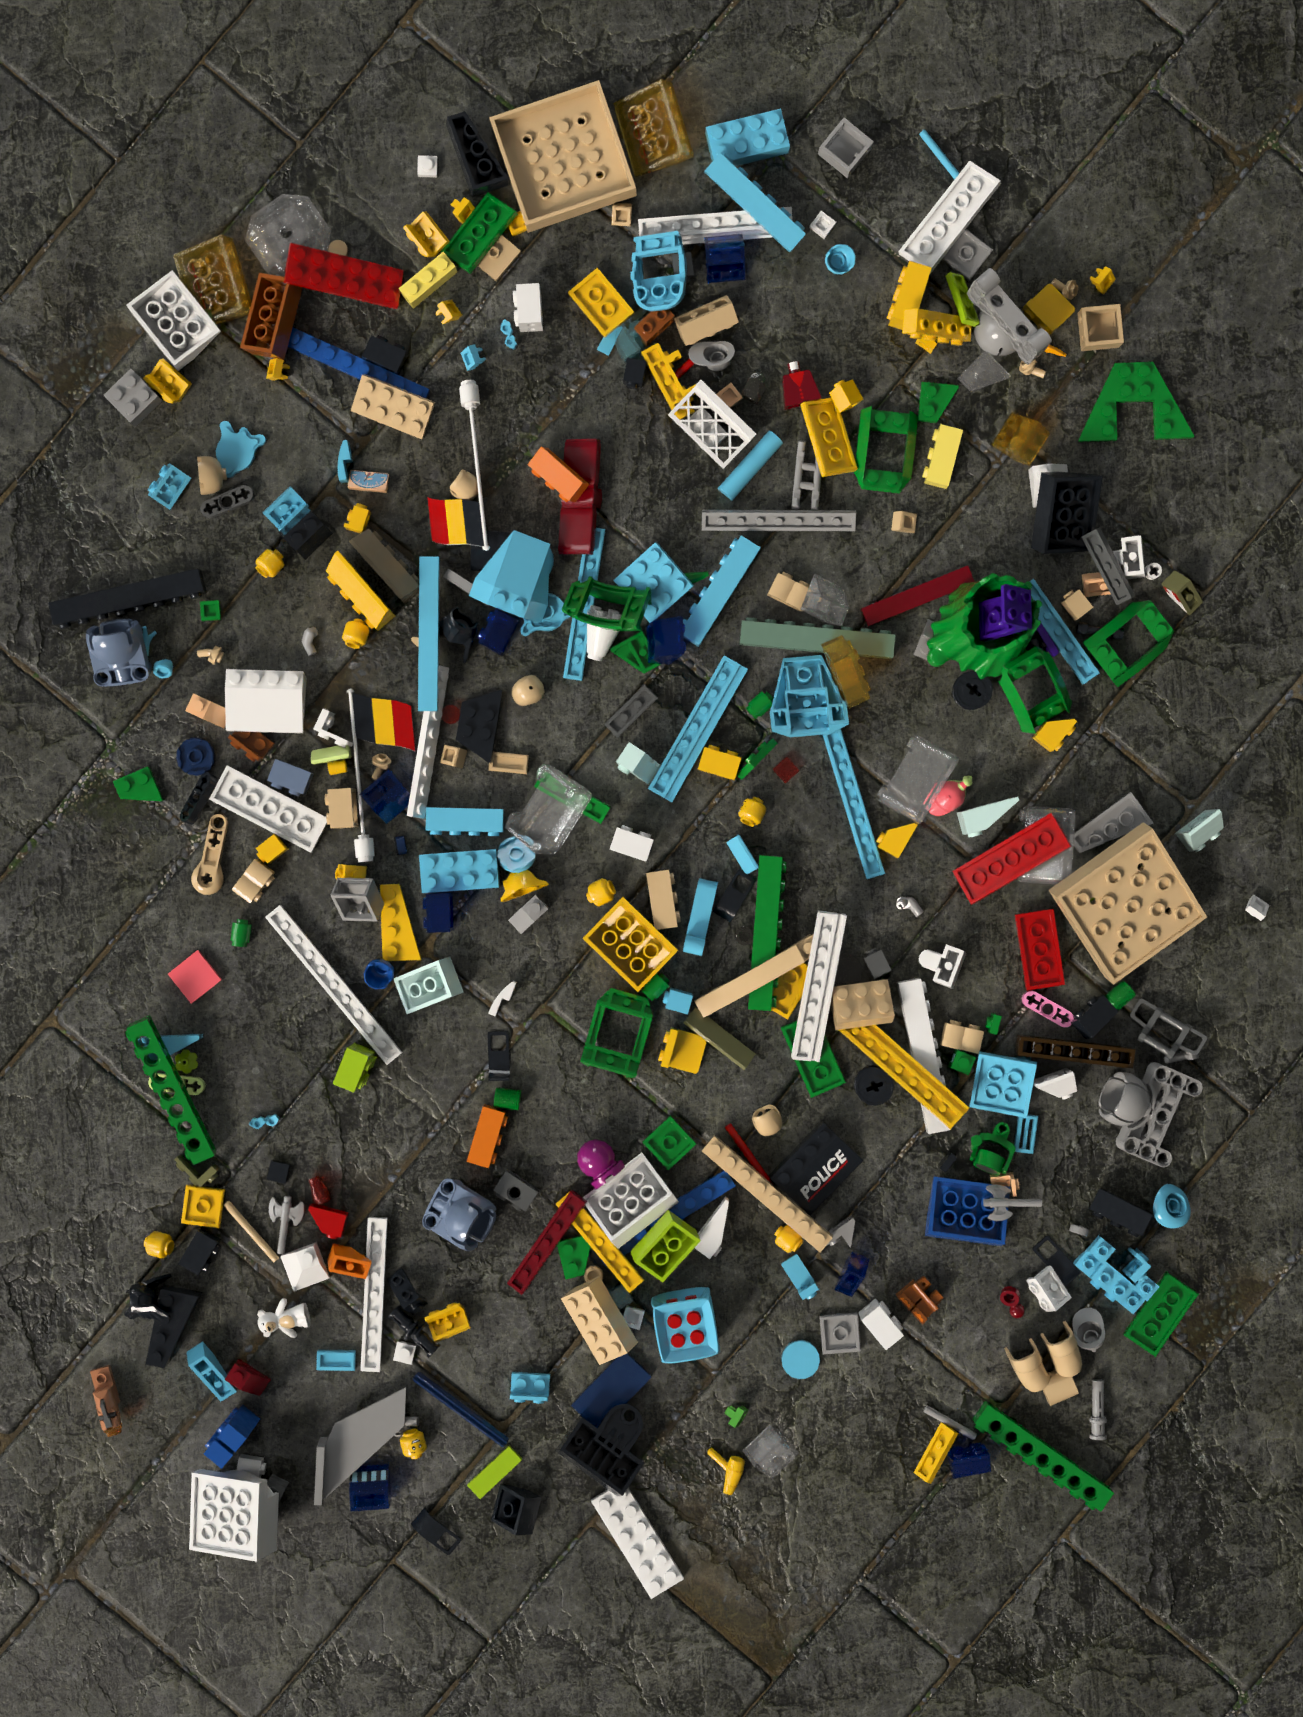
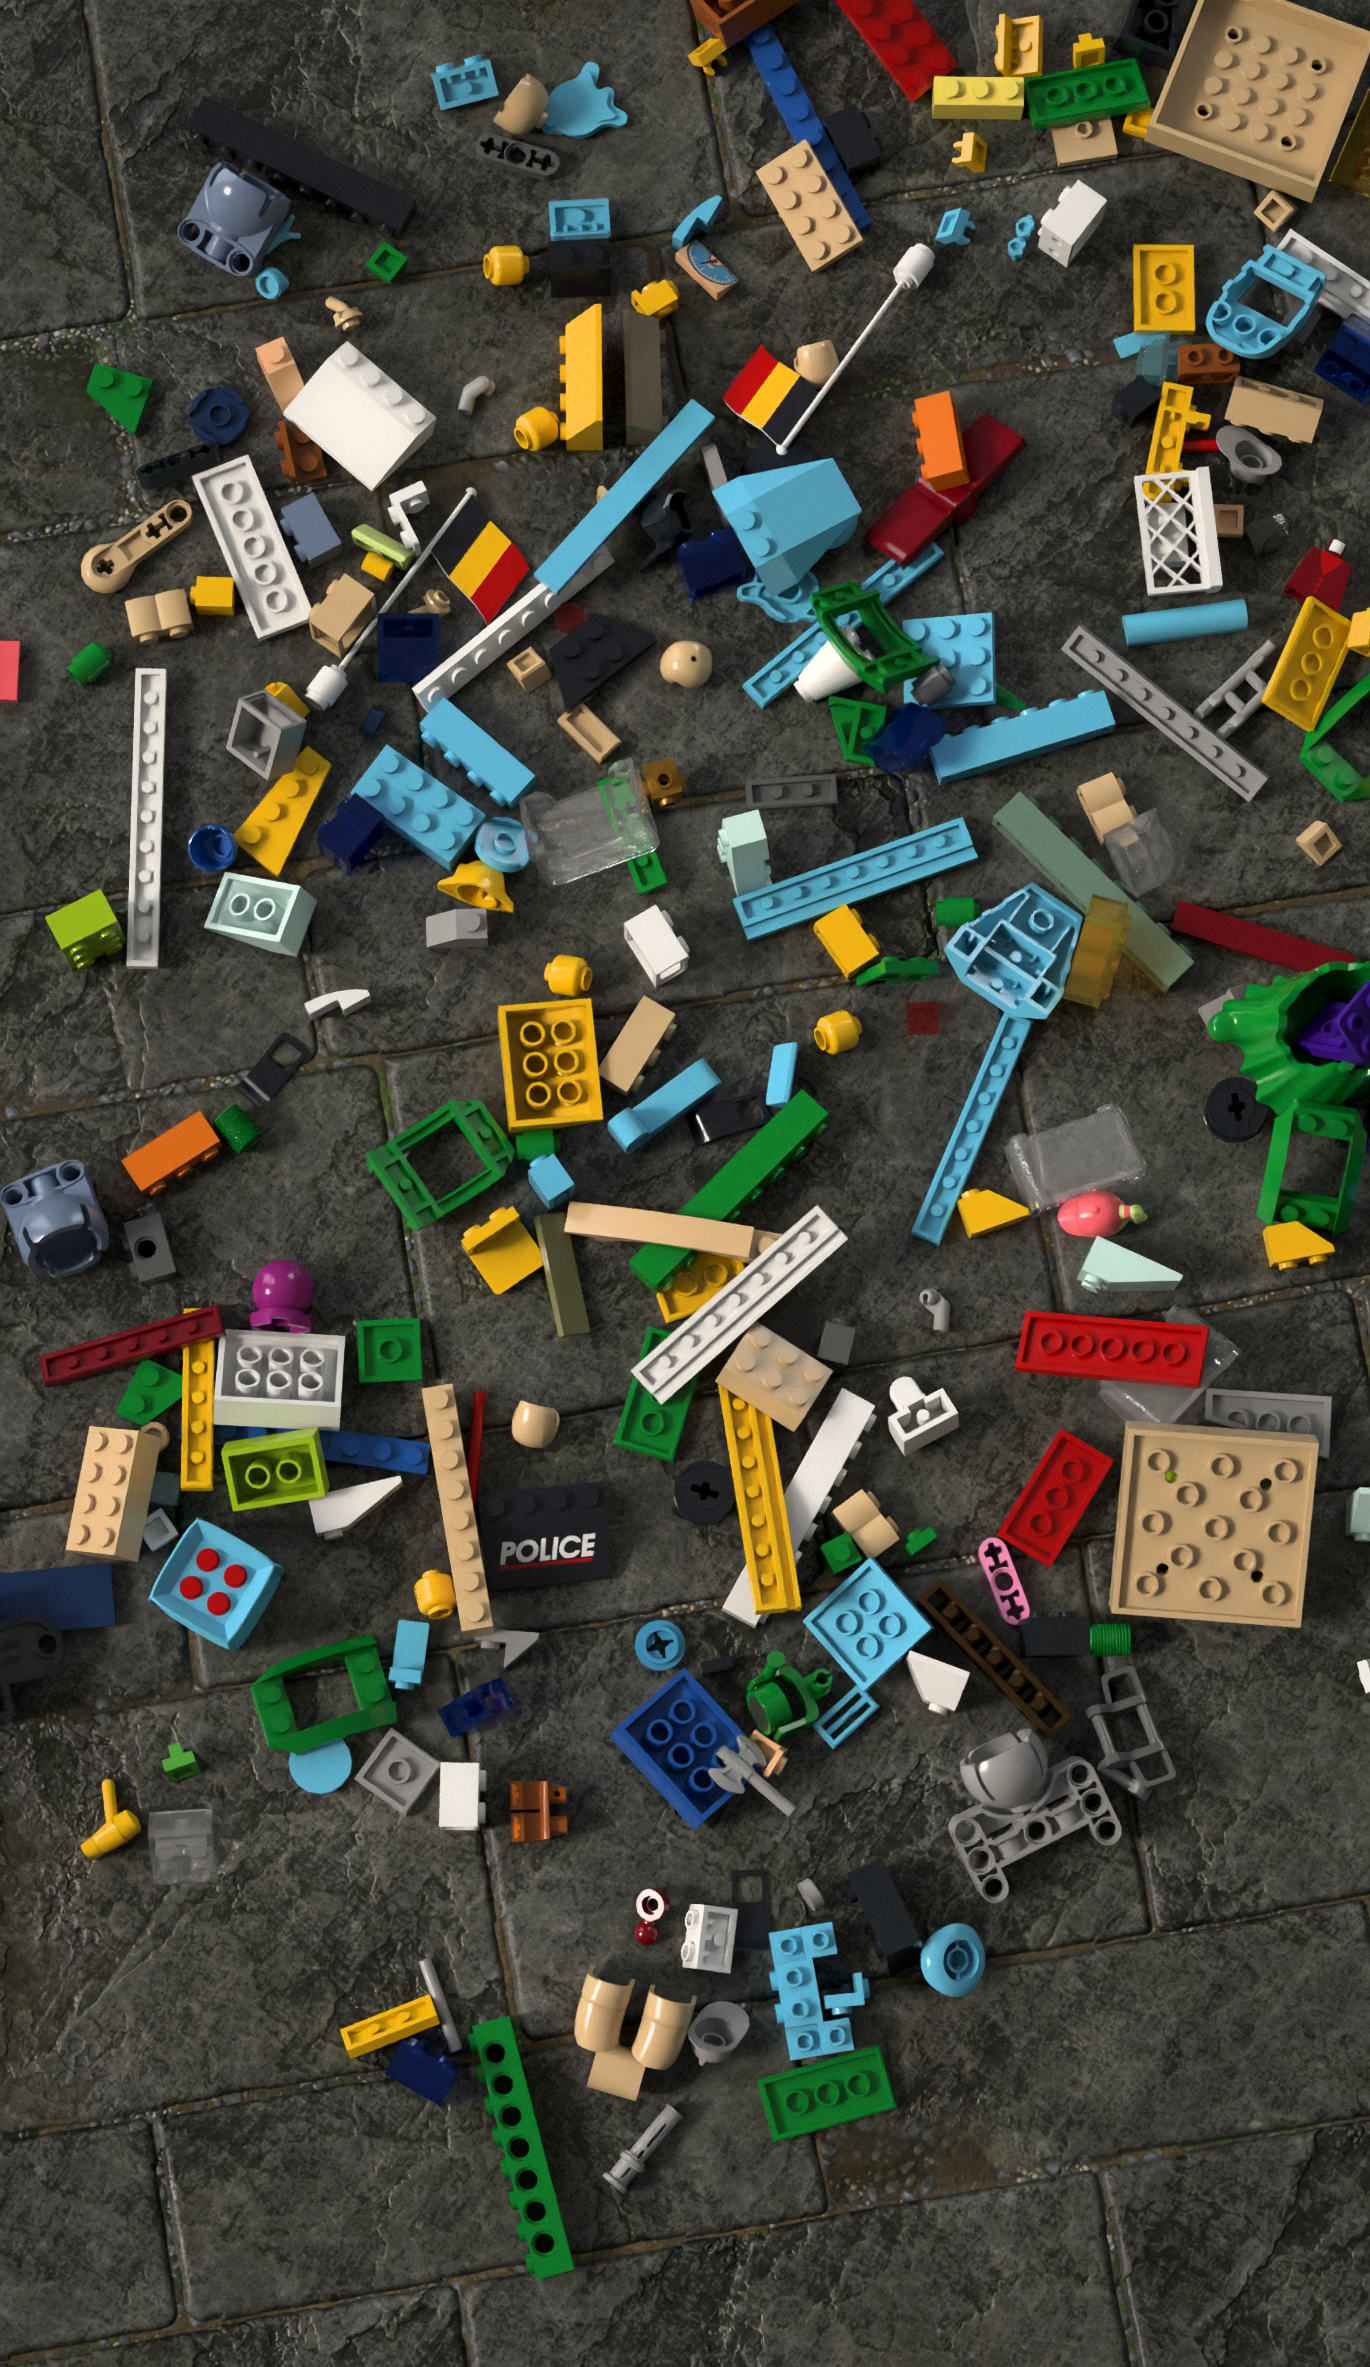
camera: 40 degrees right, 10 degrees down
(561, 755) = (663, 783): none -> pearl gold brick
(657, 603) = (932, 685): none -> dark grey brick
(793, 1307) = (367, 1682): none -> green wedge
(914, 1182) = (666, 1631): none -> dark azure gear

